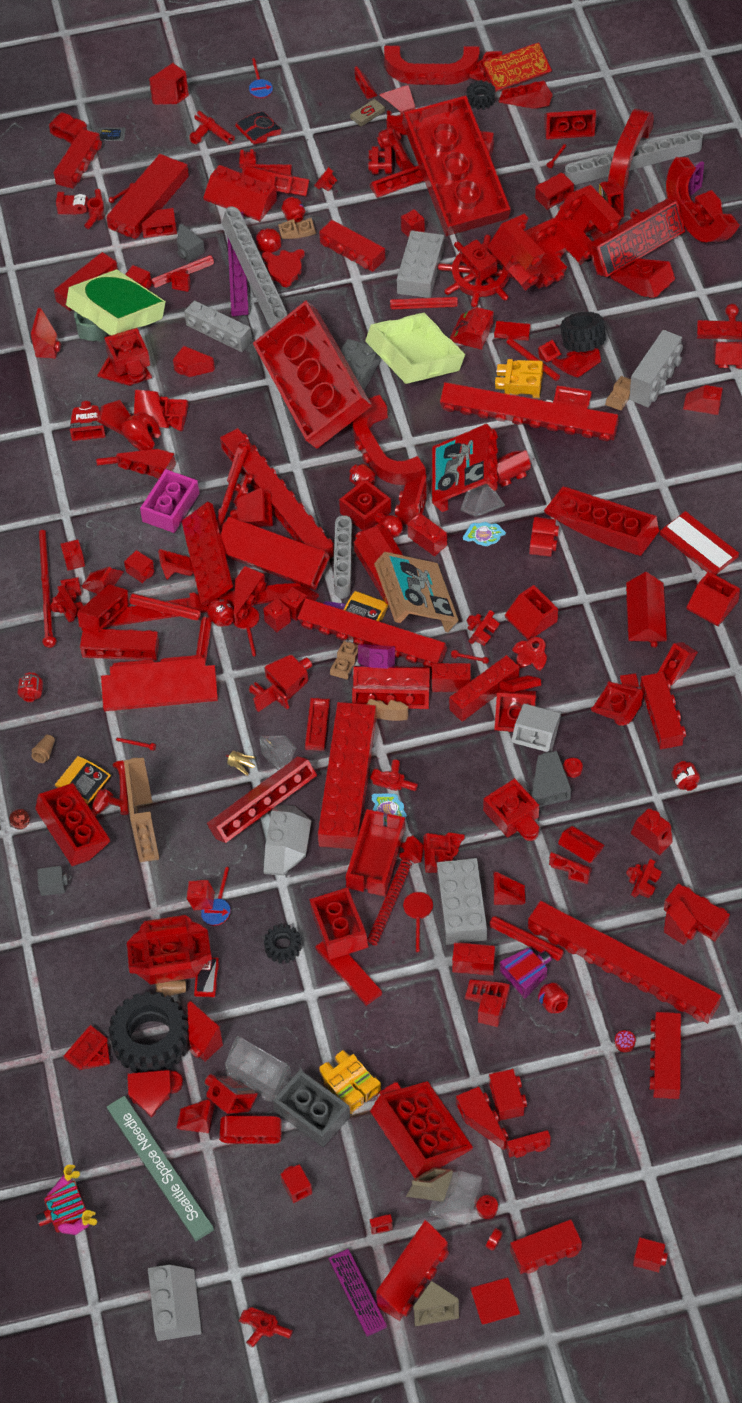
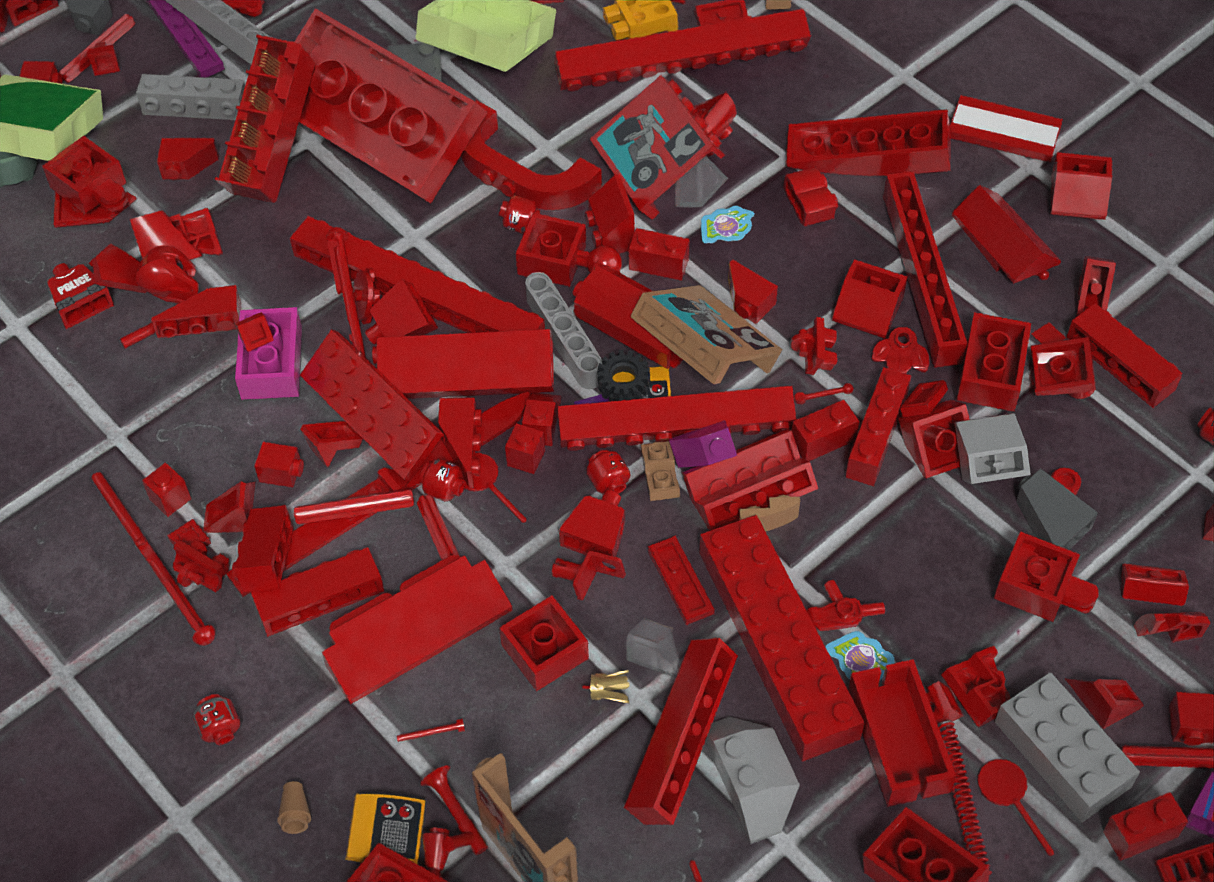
camera: 30 degrees left, 0 degrees up
(163, 485) = (254, 331): none -> red tile
(218, 723) = (544, 643): none -> red brick
(244, 359) = (267, 119): none -> red piece
(314, 647) = (608, 471): none -> red head
(355, 589) = (623, 363): none -> black tyre
(465, 580) = (750, 292): none -> red slope
(577, 608) = (924, 270): none -> red brick
(577, 680) = (994, 362): none -> red brick

